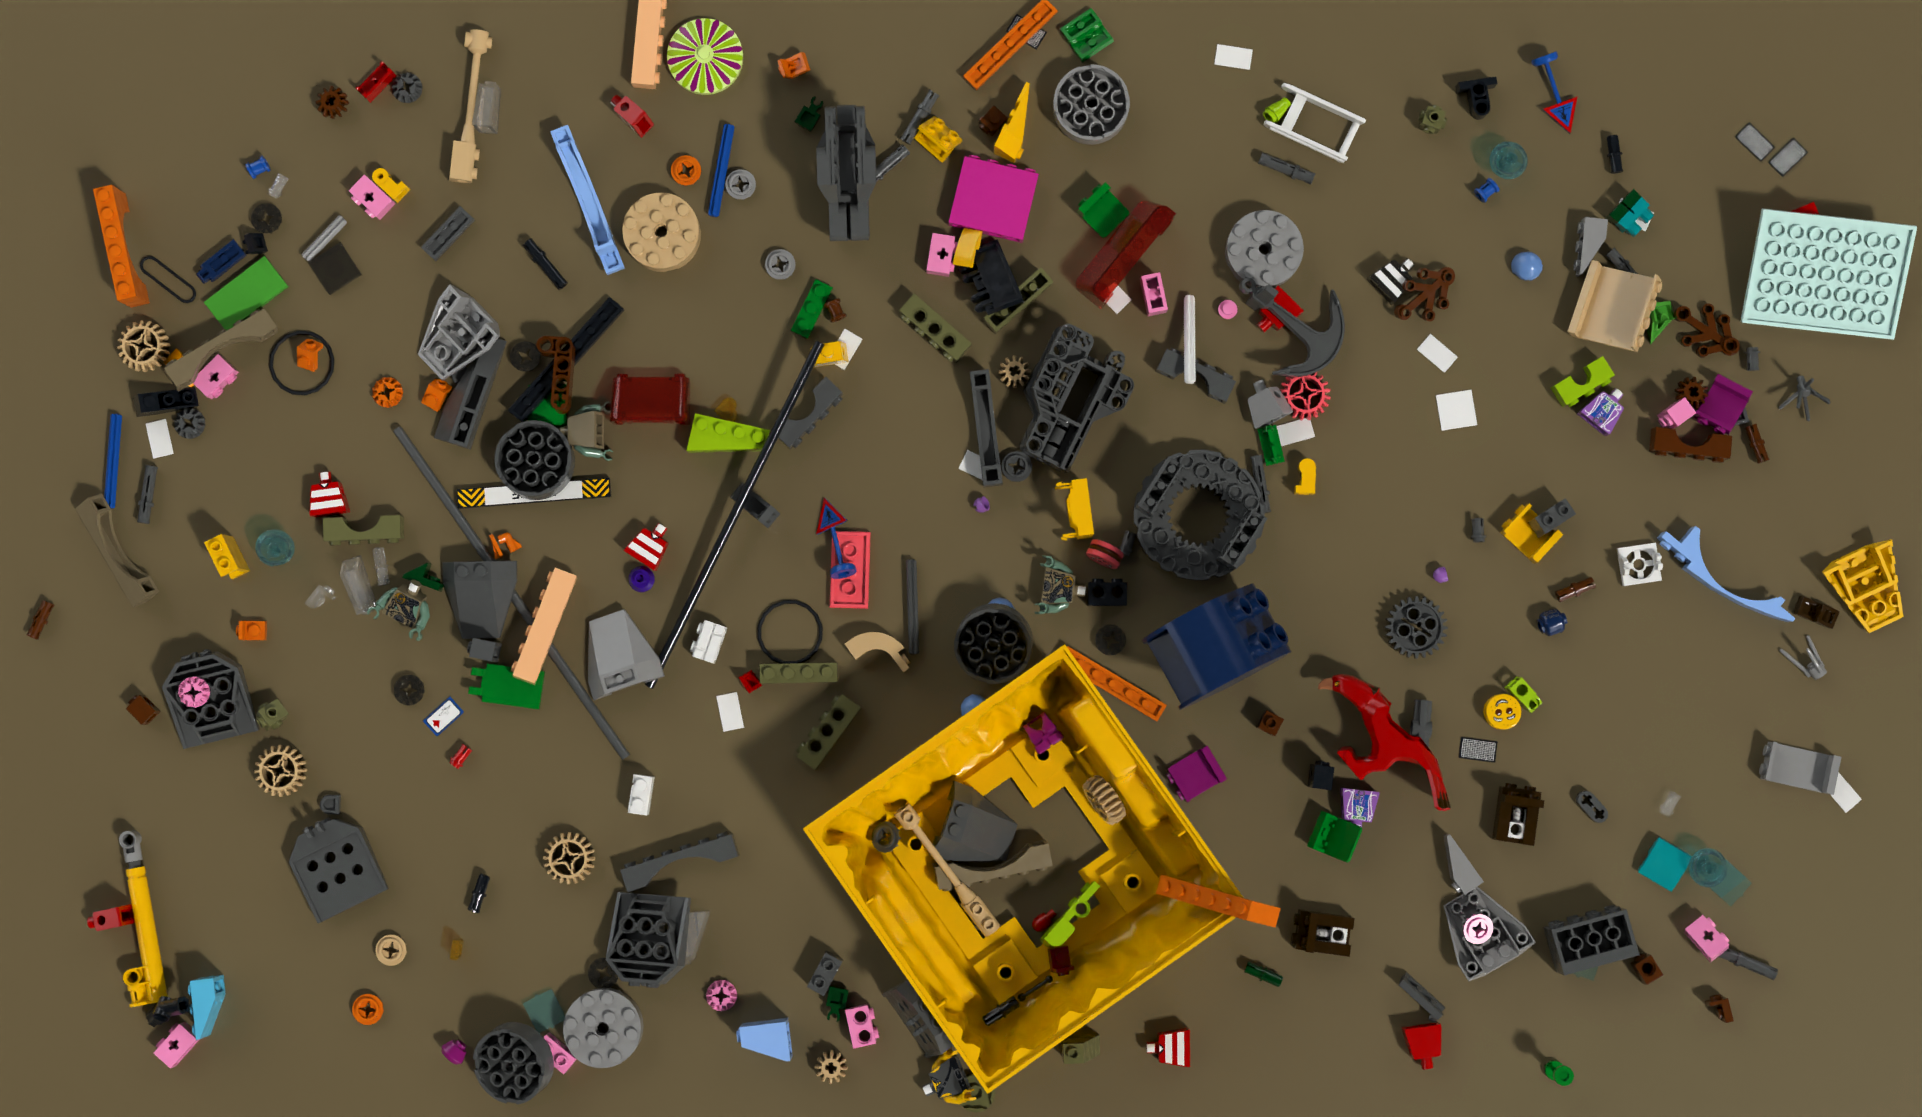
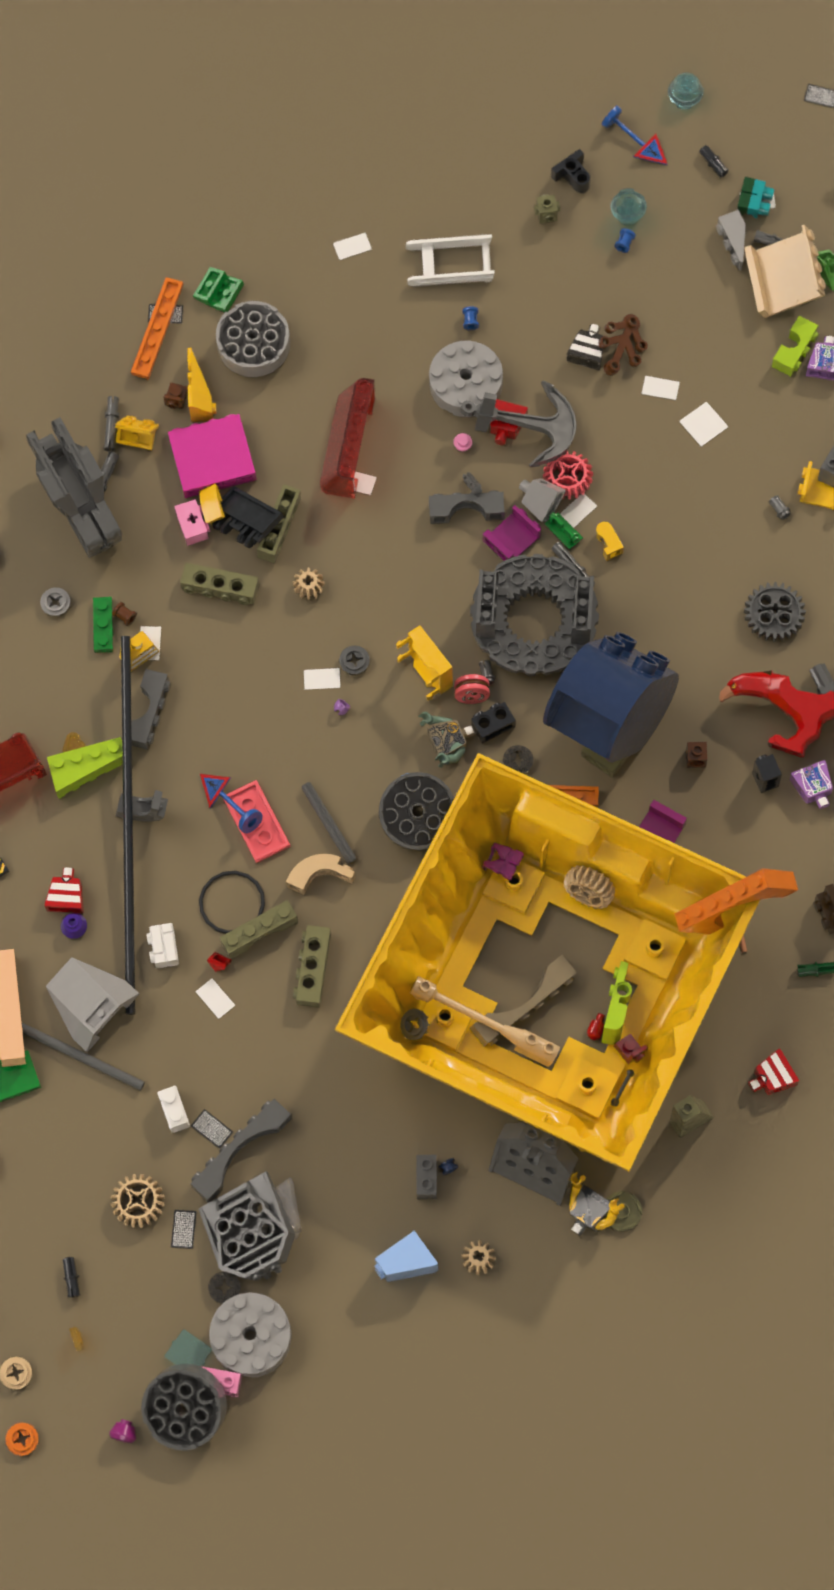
camera: 25 degrees left, 15 degrees down
(596, 901) = (183, 1229): none -> sticker
(666, 826) = (211, 1128): none -> sticker
(728, 988) = (339, 1258): bright pink gear -> none
(808, 116) = (15, 470): dark green plate -> none
(836, 999) = (450, 1196): dark green plate -> none
(849, 973) = (448, 1167): none -> dark blue bush
(856, 1026) = (480, 1209): bright pink brick -> none
(974, 828) = (490, 978): dark grey wedge -> none
(986, 428) = (318, 653): dark grey arch -> none
(1001, 1011) = (604, 1119): black axle -> none
(1047, 407) = (370, 614): dark grey connector -> none
(1102, 210) = (310, 417): green bracket -> none
(1153, 294) = (392, 459): bright pink brick -> none
(1189, 340) = (444, 479): white axle -> none
(1213, 356) = (472, 483): none -> dark grey axle
(1222, 425) = (513, 535): none -> magenta panel
(1276, 110) = (413, 266): lime cone -> none
(1286, 168) = (446, 307): dark grey pin -> none
(1301, 190) = (470, 318): none -> blue bush
(1335, 837) = (808, 818): green bracket -> none
(1440, 575) = (770, 559): medium lavender hinge -> none
(1526, 265) = (693, 281): medium blue hair -> none
(1629, 68) = (685, 90): none -> clear light blue cone

